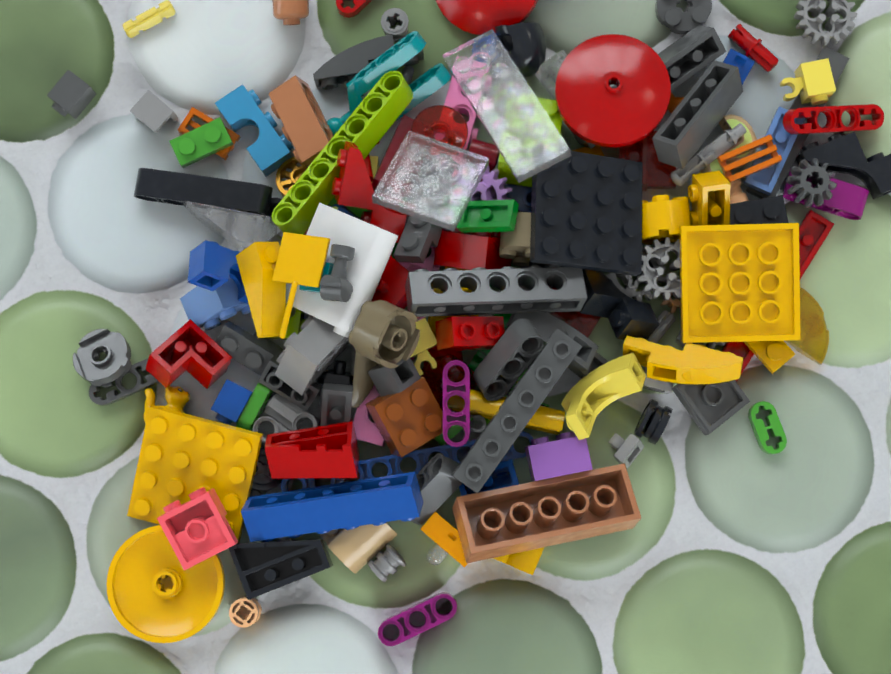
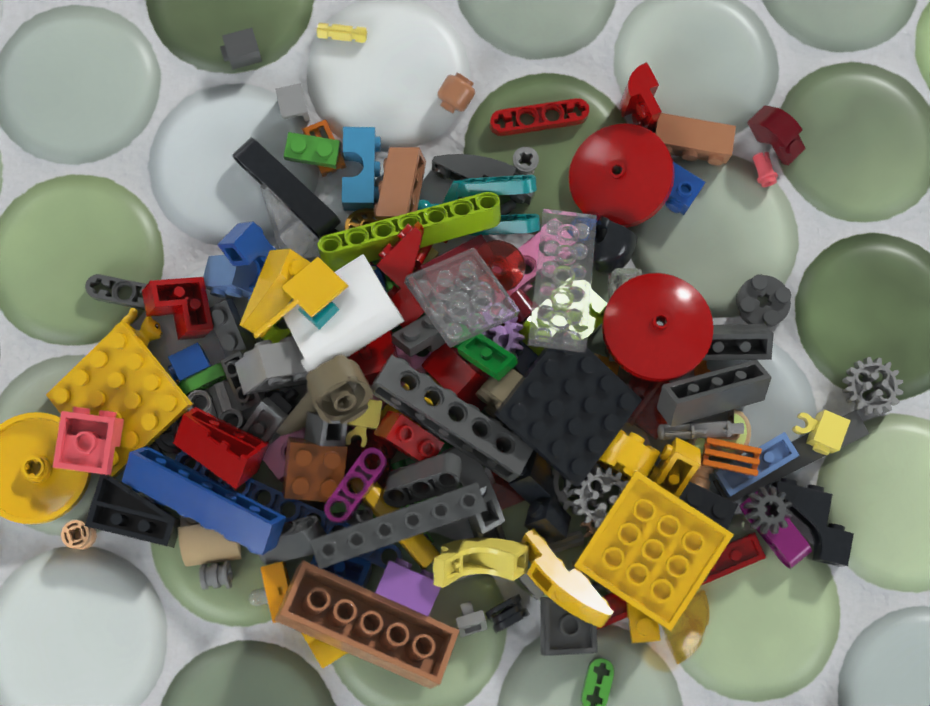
camera: 25 degrees right, 5 degrees down
(112, 366) = (124, 271): plate -> none
(336, 286) = (326, 325): dark grey leg -> none
(406, 628) = (193, 638): magenta beam -> none
(741, 61) = (779, 378): blue tile -> none
(753, 48) = (796, 372): red axle -> none
(833, 116) = (822, 472): red beam -> none

